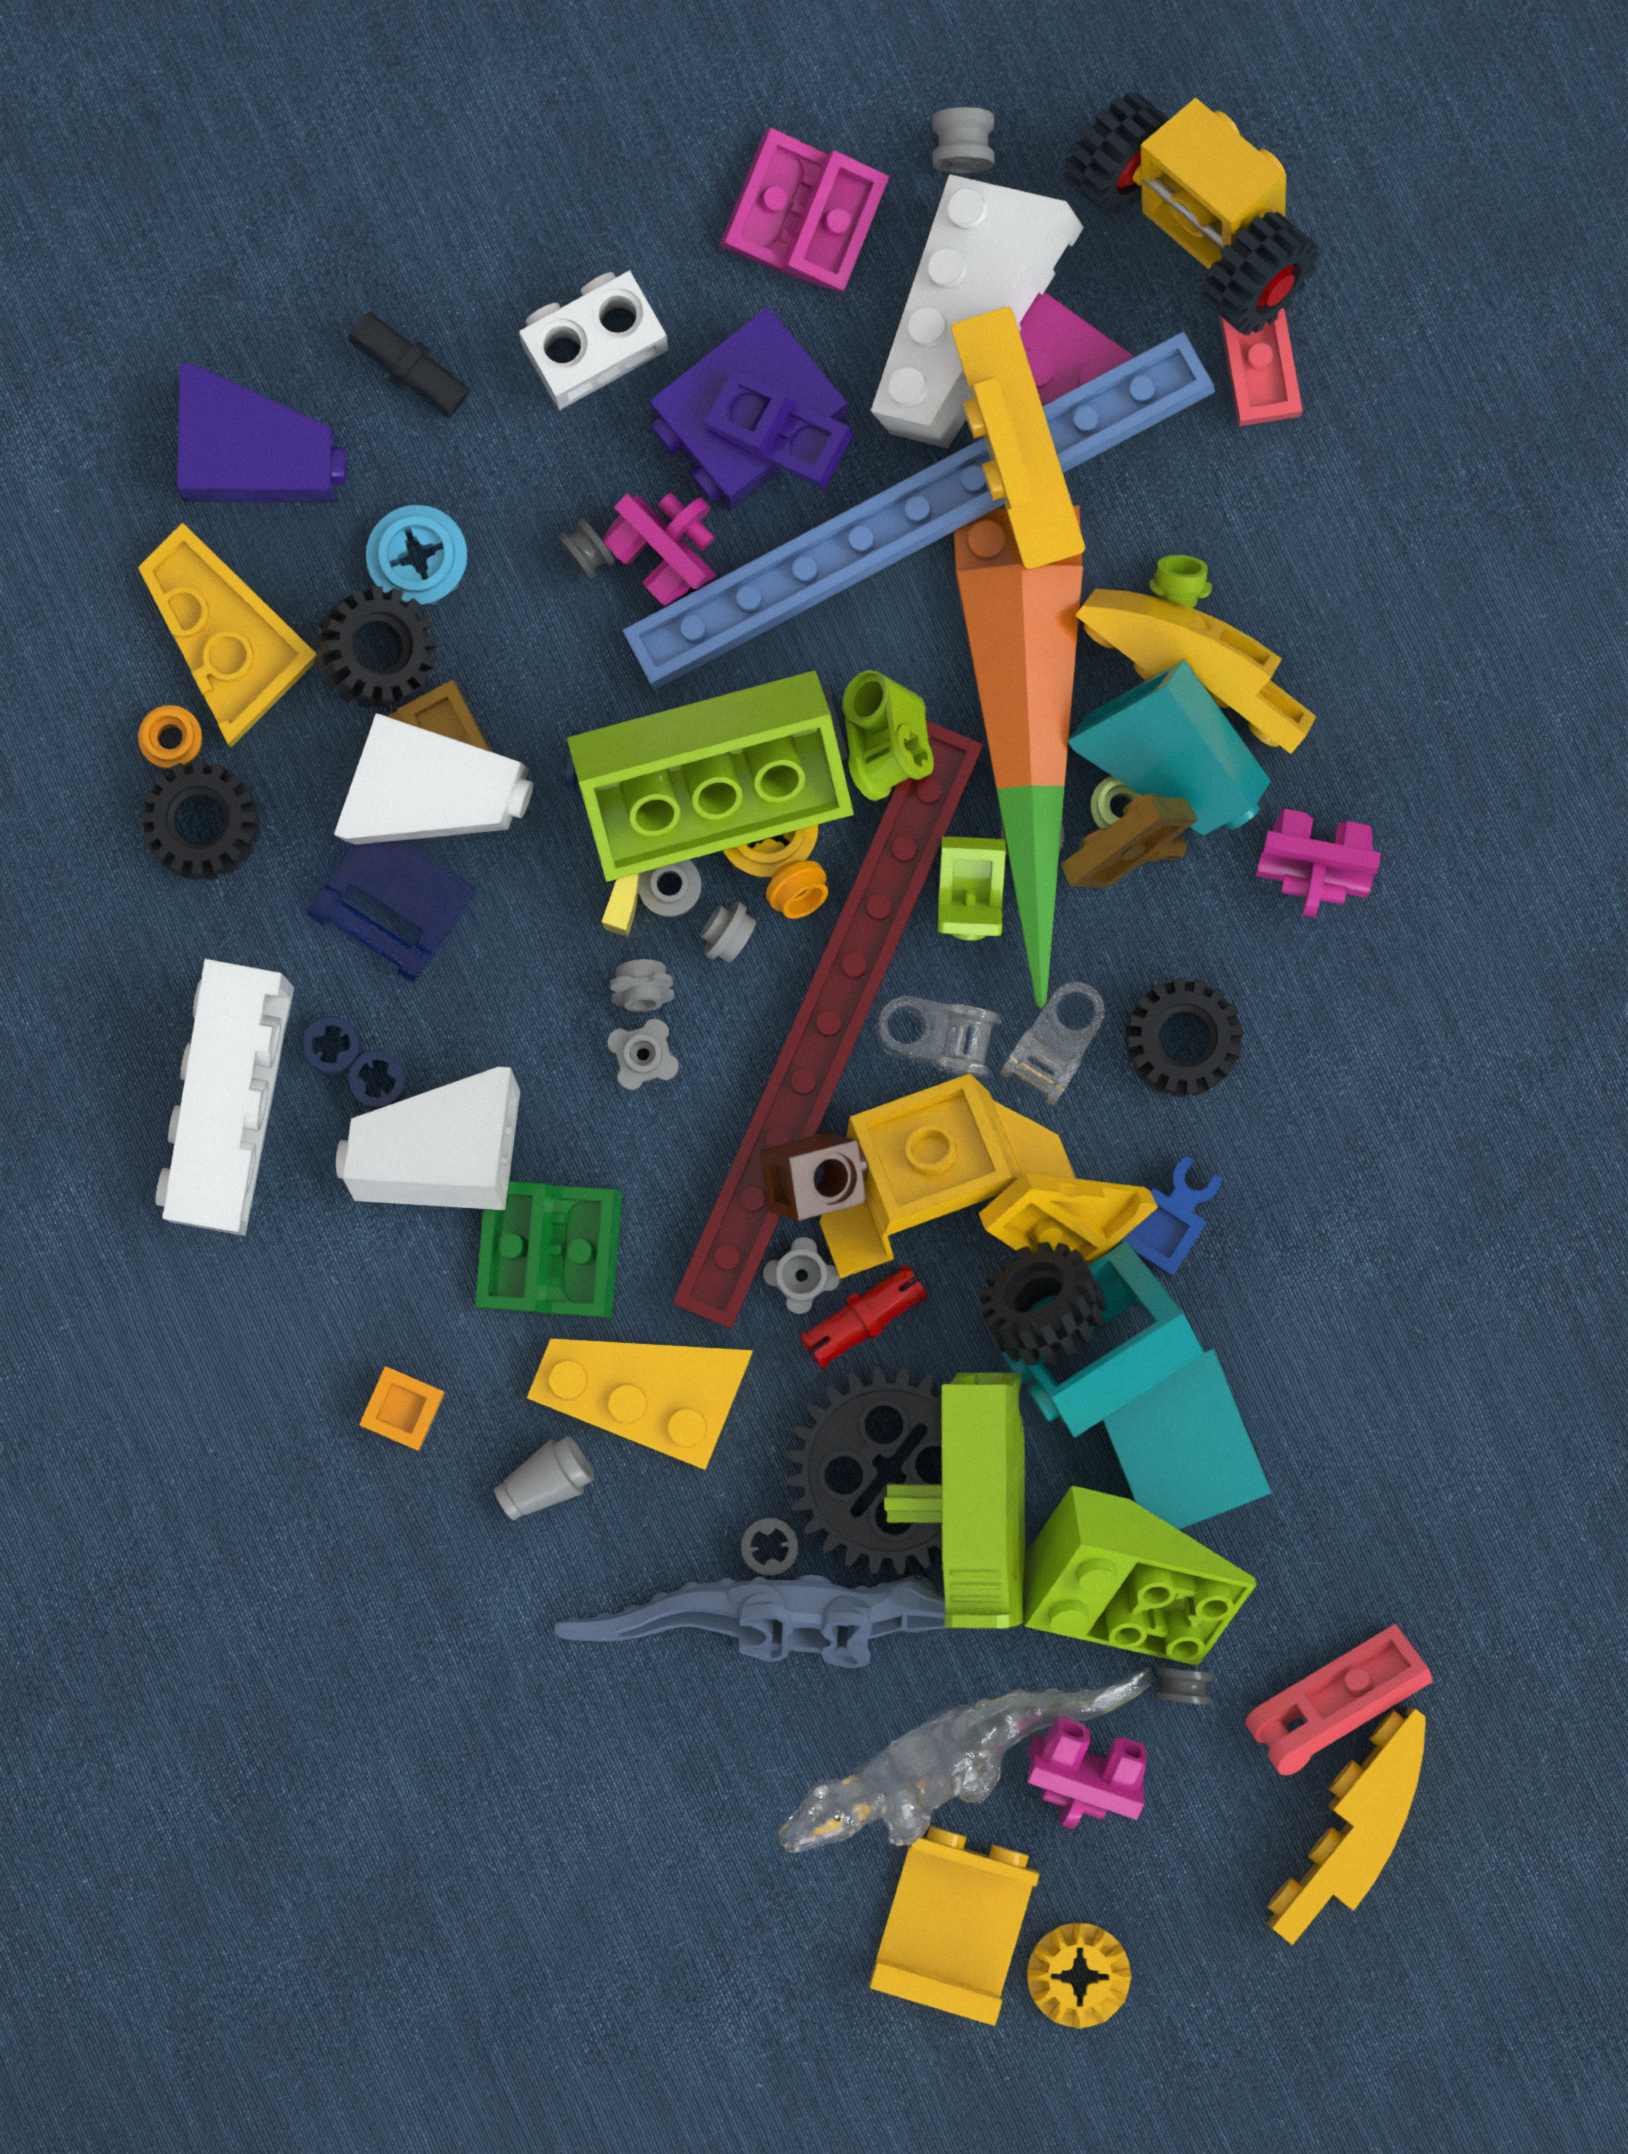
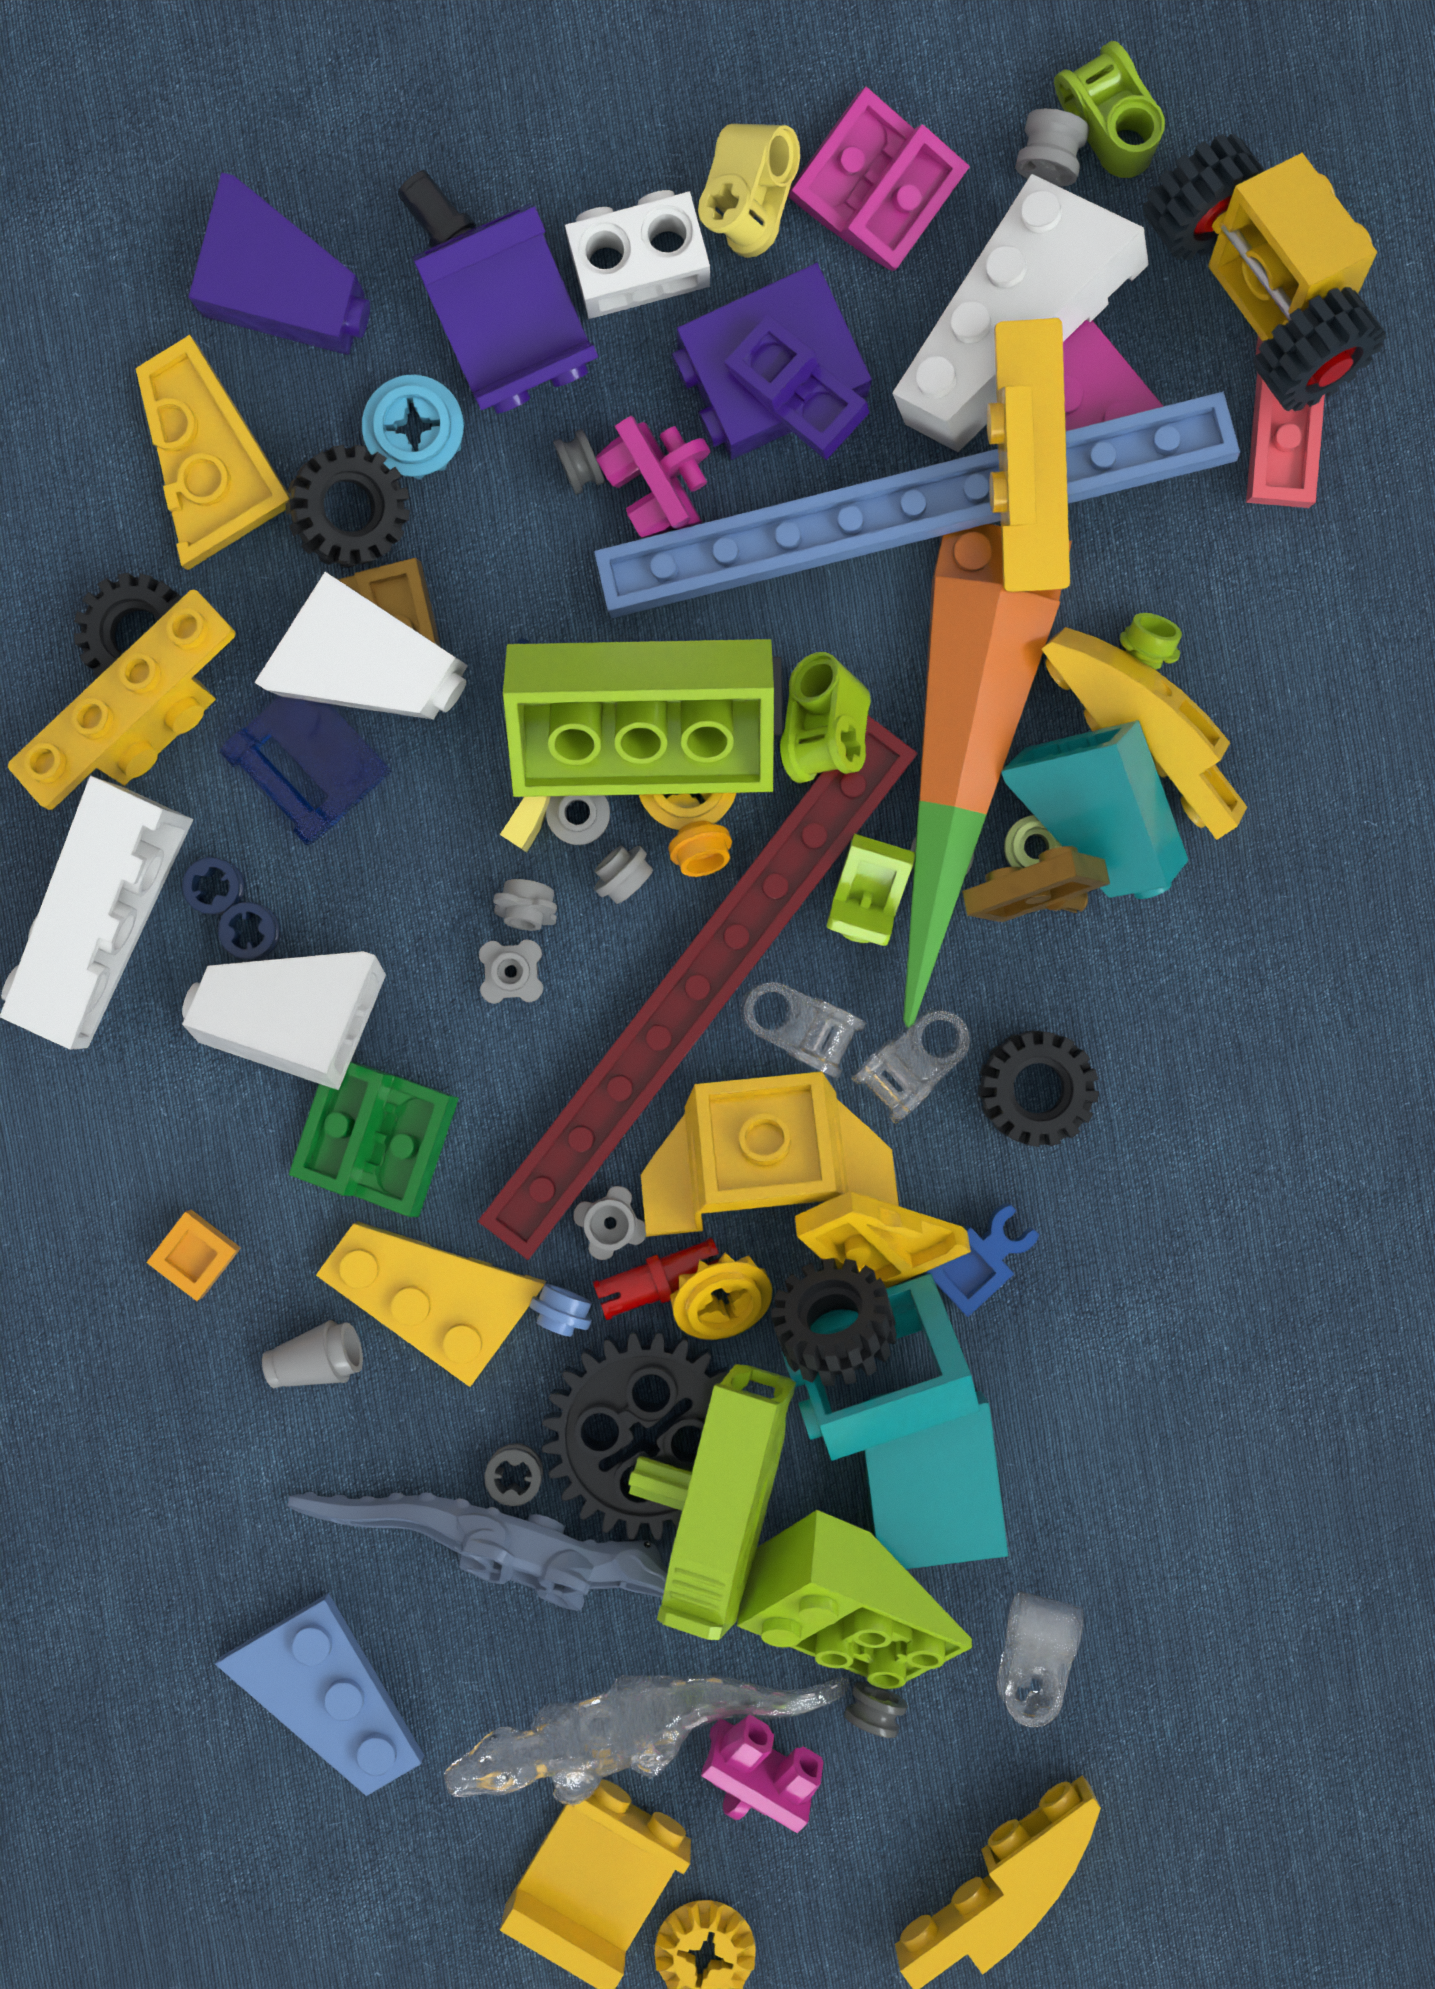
camera: 20 degrees right, 5 degrees up
(162, 719) = (114, 534): light orange plate -> none
(214, 890) = (130, 707): none -> yellow bracket
(481, 424) = (505, 309): none -> dark purple panel
(640, 1812) = (327, 1694): none -> medium blue wing
(683, 241) = (749, 180): none -> light yellow piece
(775, 1370) = (561, 1310): none -> medium blue plate
(791, 1171) = (624, 1124): reddish brown brick -> none
(954, 1308) = (707, 1317): none -> yellow gear
(1003, 82) = (1112, 100): none -> lime piece
(1318, 867) = (1212, 958): dark pink hips -> none
(1331, 1578) = (1038, 1646): none -> clear piece
(1338, 1699) = (1020, 1761): coral plate -> none

